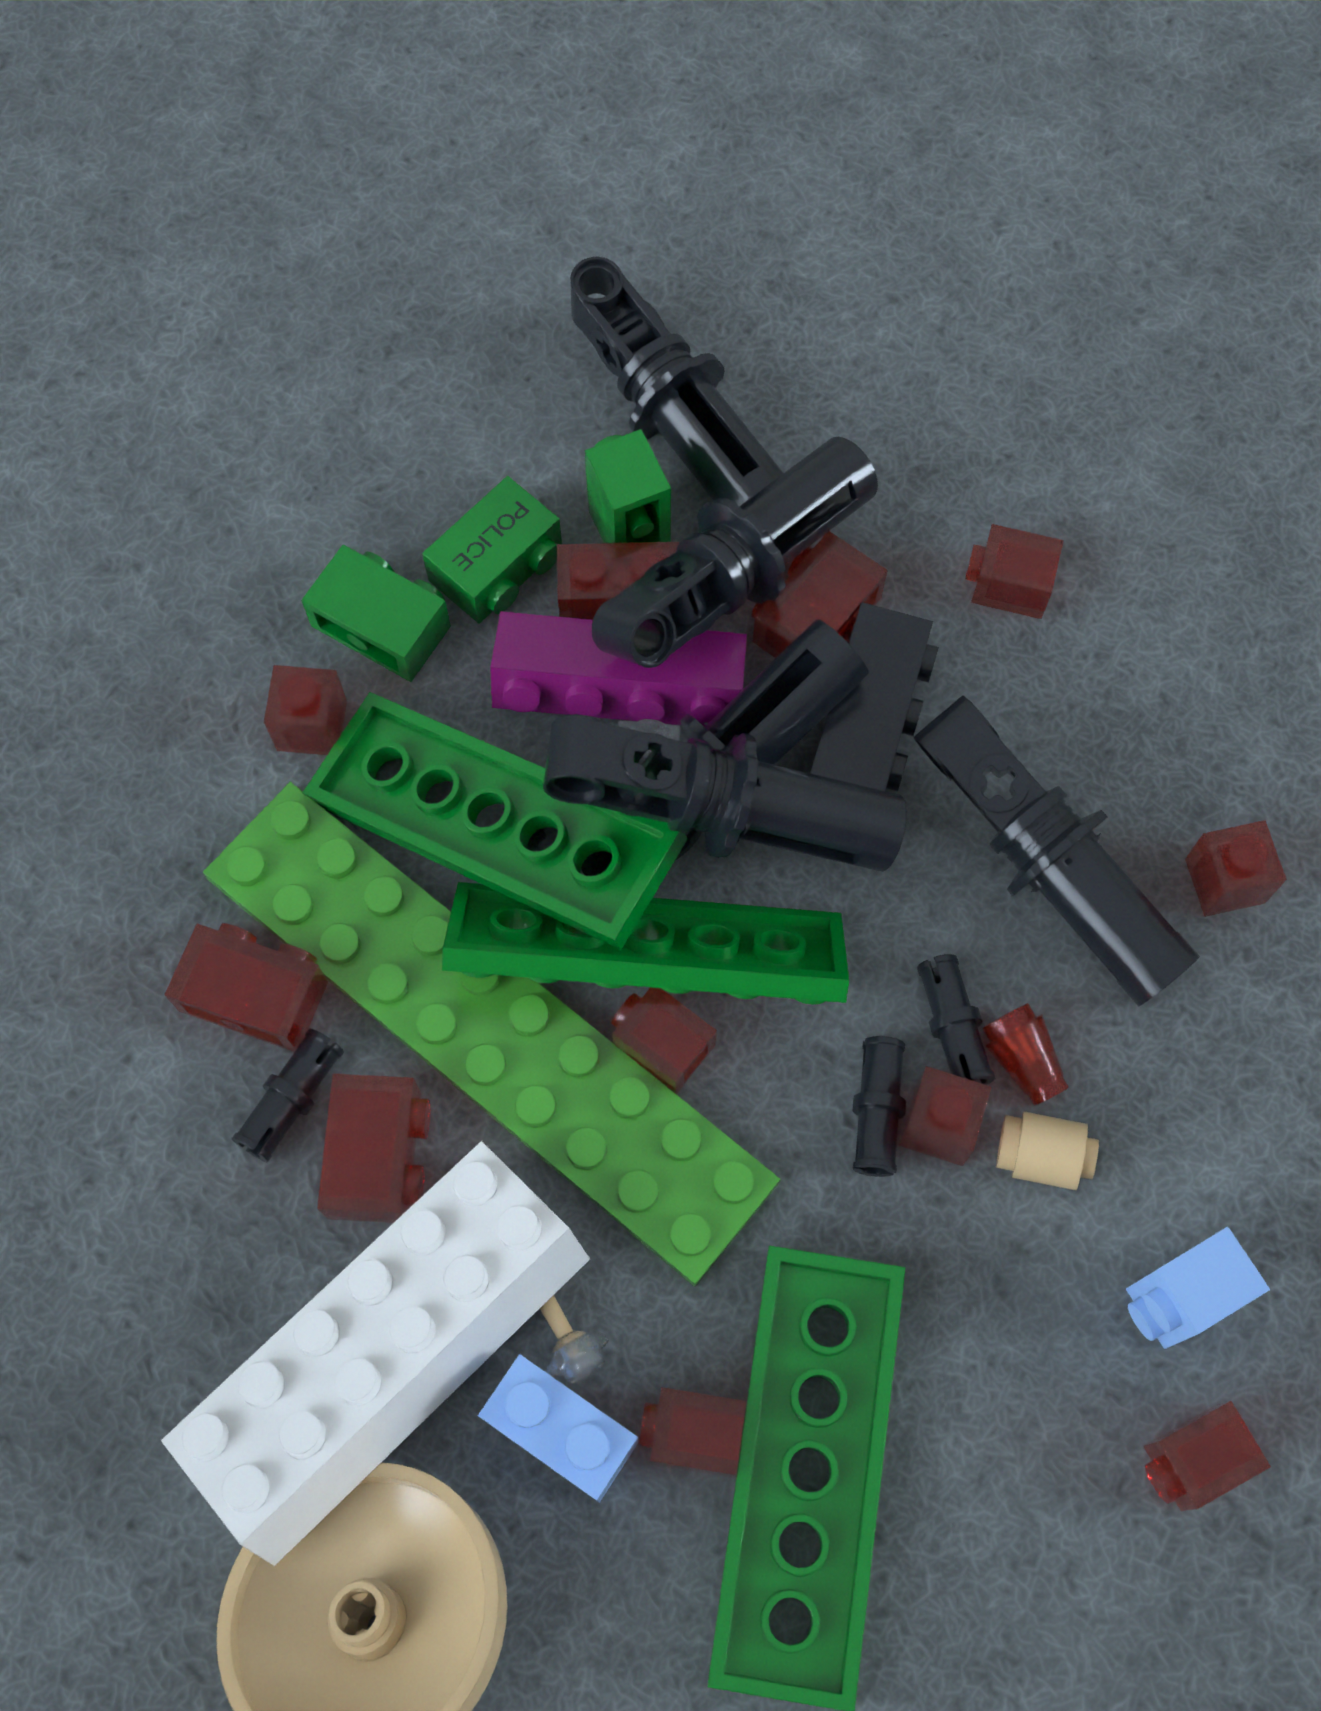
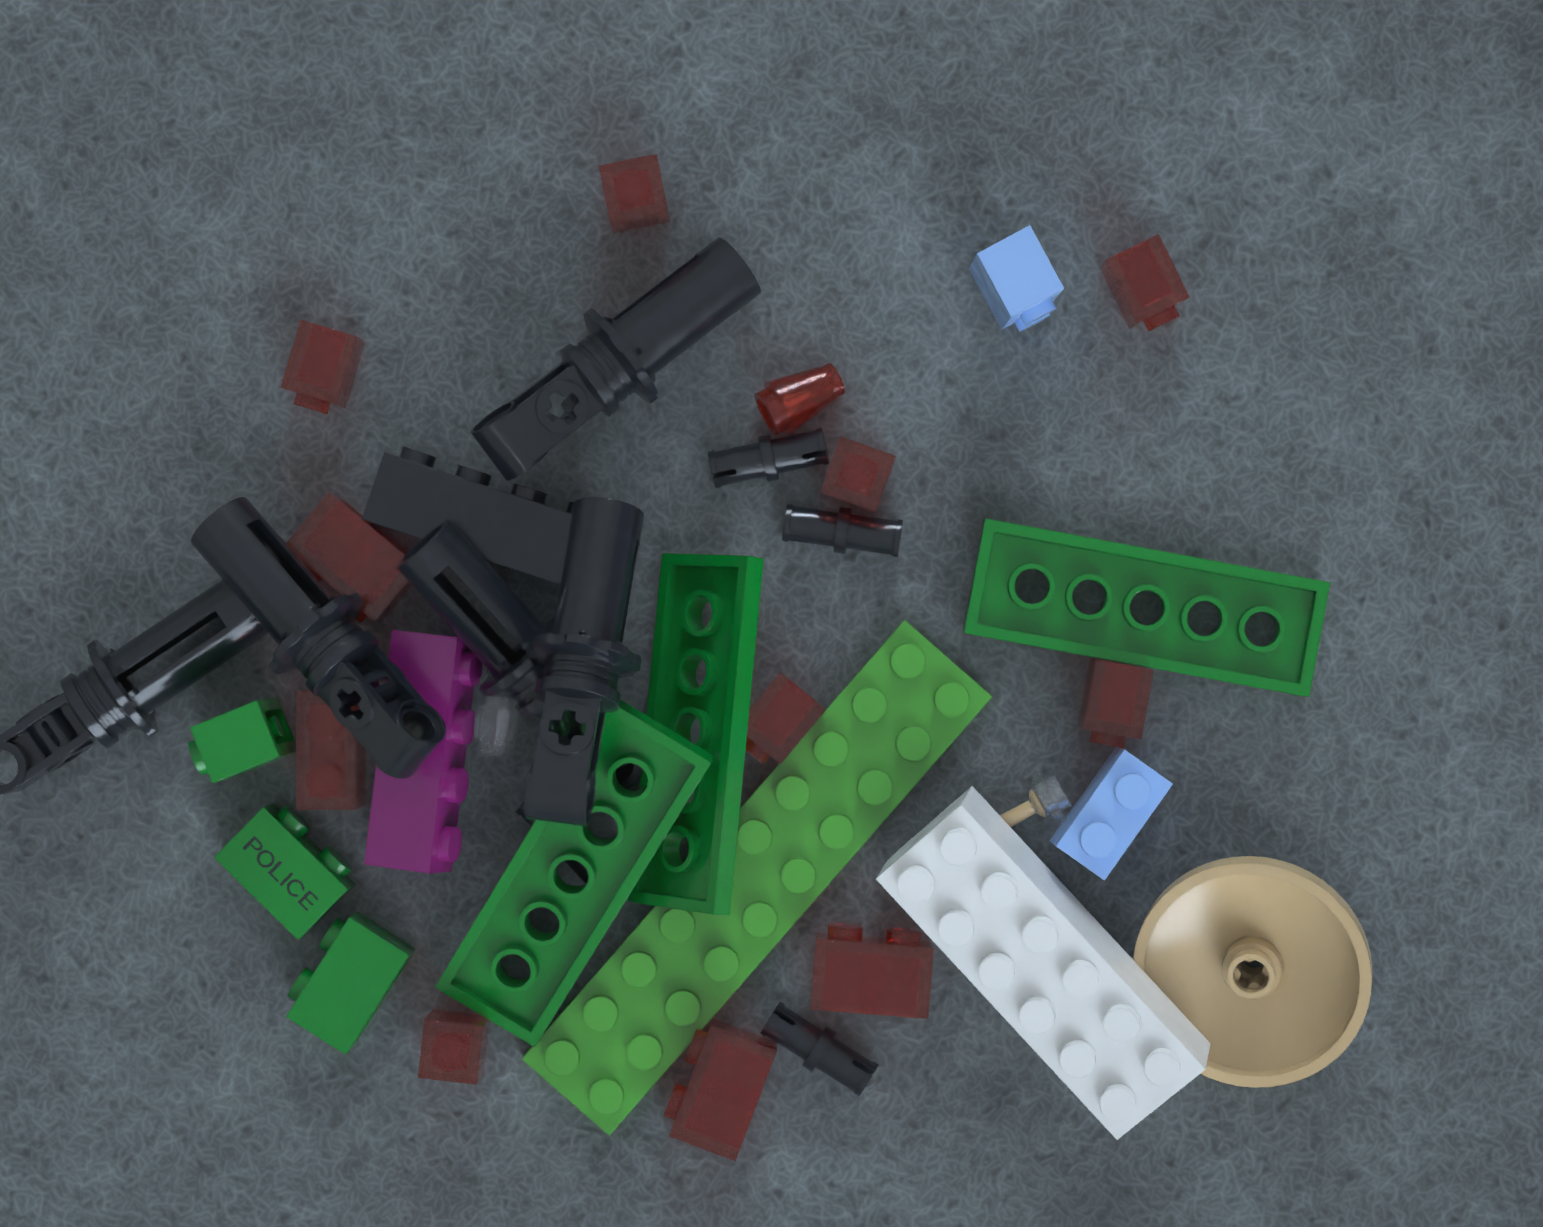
camera: 80 degrees left, 20 degrees up
(1047, 1150) = (886, 387): tan brick -> none

